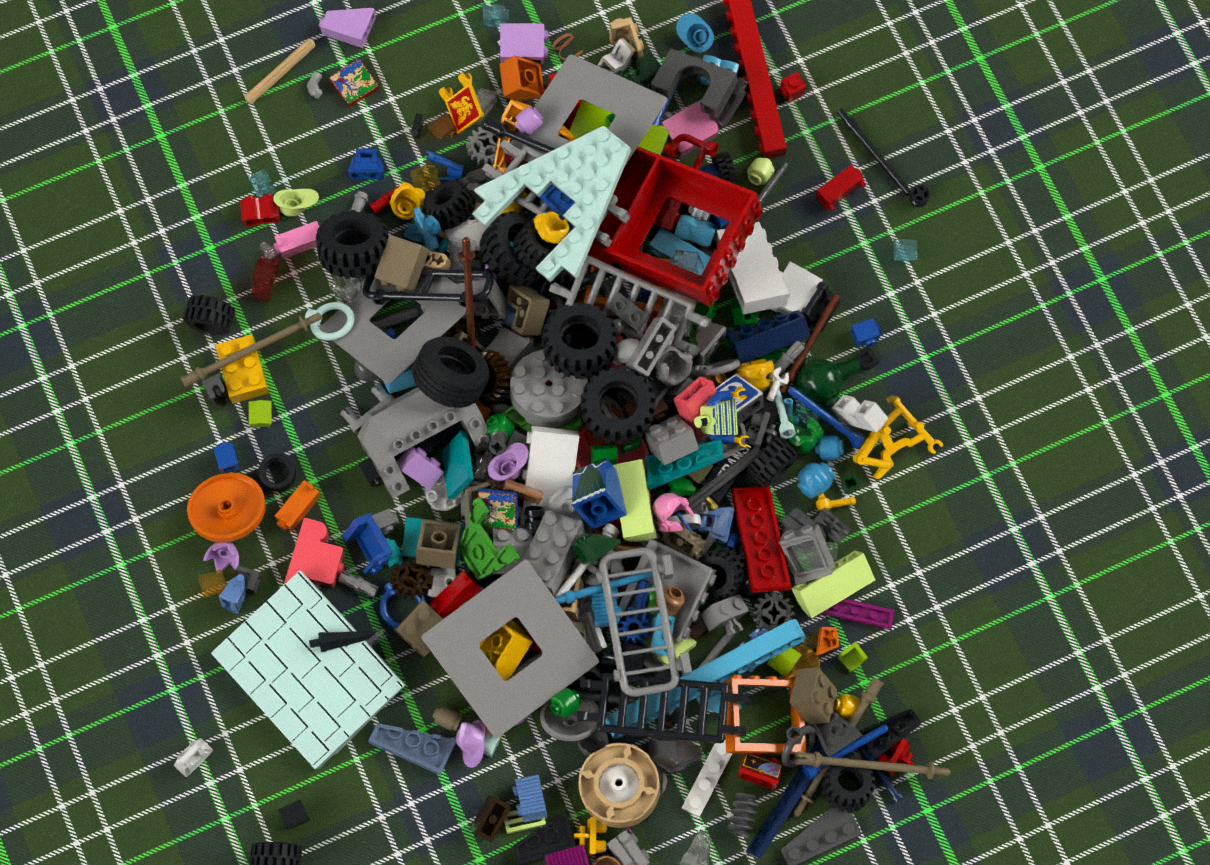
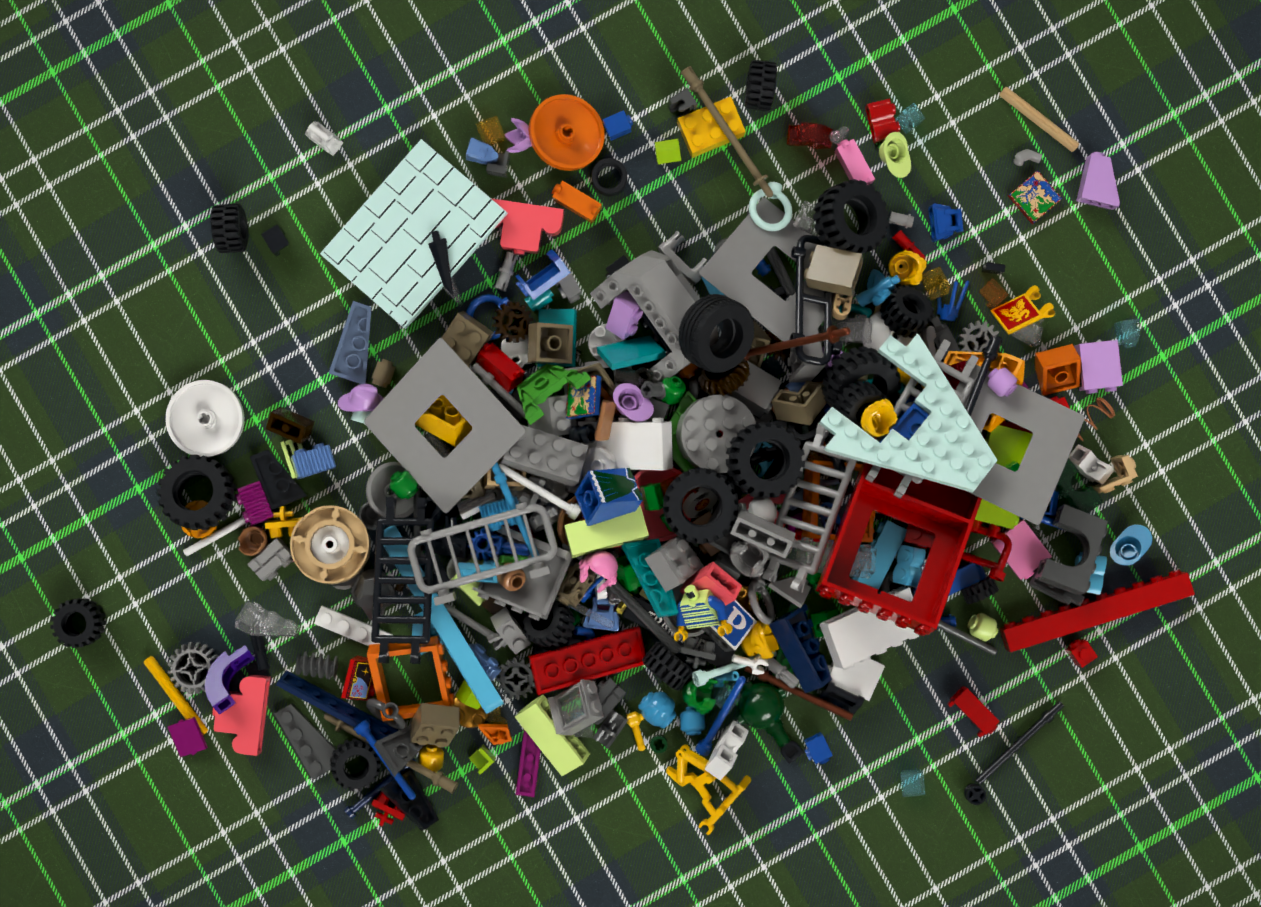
camera: 90 degrees right, 15 degrees up
(592, 547) = (551, 496): dark green slope -> none
(626, 312) = (800, 505): dark grey plate -> none
(816, 760) = (369, 733): dark tan bar -> none

